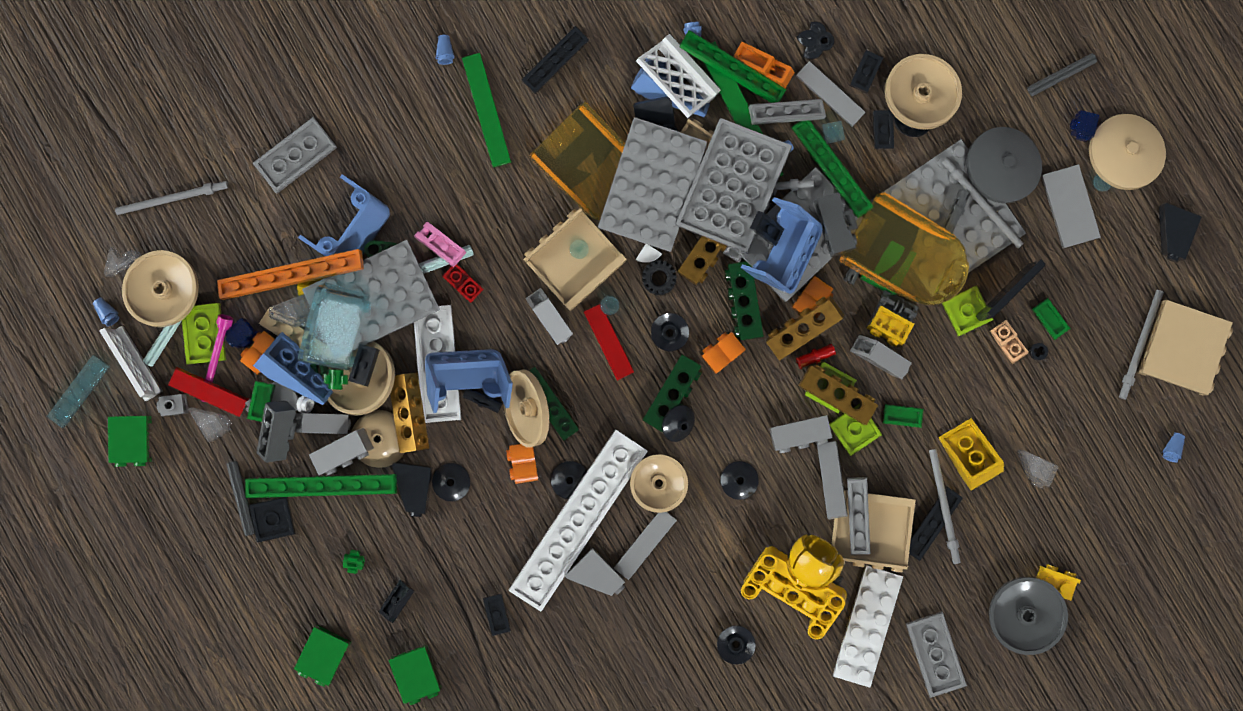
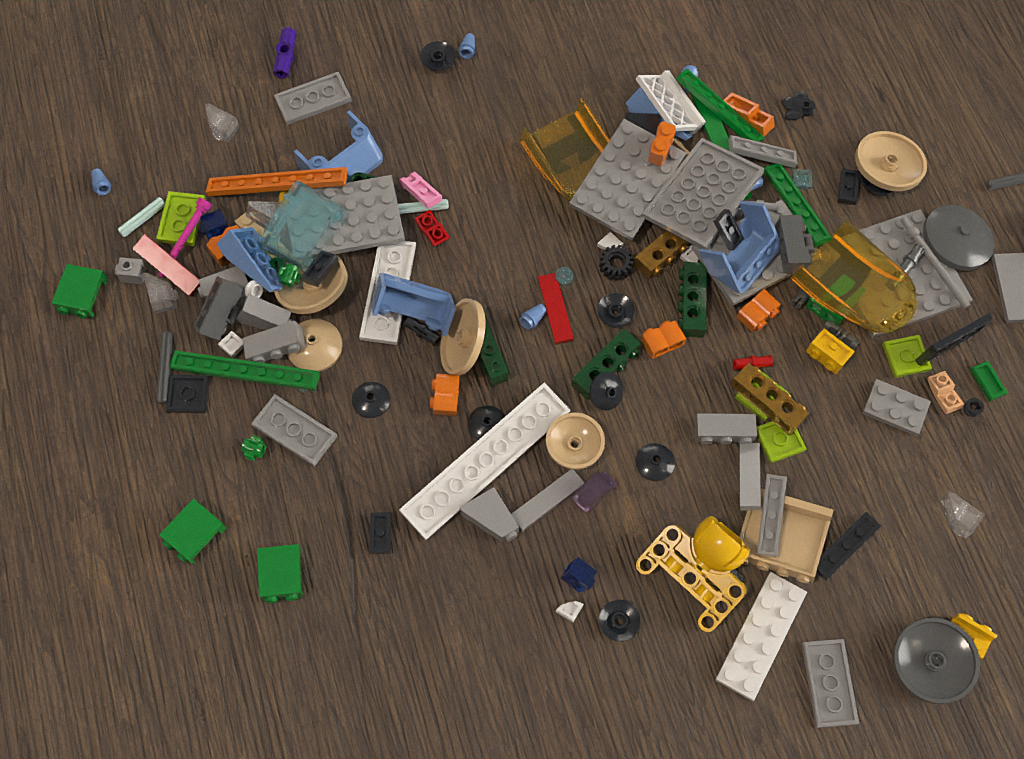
camera: 10 degrees right, 20 degrees down
(78, 391) = (49, 241): clear light blue plate -> none
(116, 264) = (125, 146): clear slope -> none
(132, 362) = (107, 225): white fence -> none
(160, 288) = (155, 171): tan dish -> none
(207, 189) = (226, 107): light grey bar -> none
(208, 213) = (221, 123): none -> clear slope
(247, 96) = (285, 53): none -> dark purple piece
(261, 394) = (216, 269): green tile -> none
(299, 459) = (231, 344): none -> white plate
(386, 531) = (294, 430): none -> light grey tile
(396, 601) = (284, 495): black plate -> none
(409, 413) = (348, 324): pearl gold brick -> none
(412, 63) = (435, 51): none -> black dish
(414, 487) = (334, 392): black slope -> none
(486, 110) = (492, 99): green tile -> none
(549, 316) = (505, 272): light grey slope -> none
(555, 60) = (562, 73): black plate -> none
(572, 277) = (540, 231): tan panel -> none
(579, 249) = (546, 224): clear light blue plate -> none
(588, 358) = (531, 317): none -> medium blue cone
(680, 139) = (661, 143): none -> orange brick
(688, 527) = (594, 490): none -> clear purple brick
(688, 643) = (570, 610): none -> white tile
(690, 612) = (579, 575): none -> clear blue brick
(782, 348) = (758, 331): pearl gold brick -> none
(830, 94) = (804, 149): light grey tile -> none
(866, 71) = (840, 138): black plate -> none
(881, 356) = (817, 375): light grey slope -> none
(902, 416) = (829, 437): green tile -> none
(952, 542) = (864, 566): light grey bar -> none
(963, 369) = (896, 407): none -> light grey plate
(972, 454) = (896, 487): yellow slope -> none

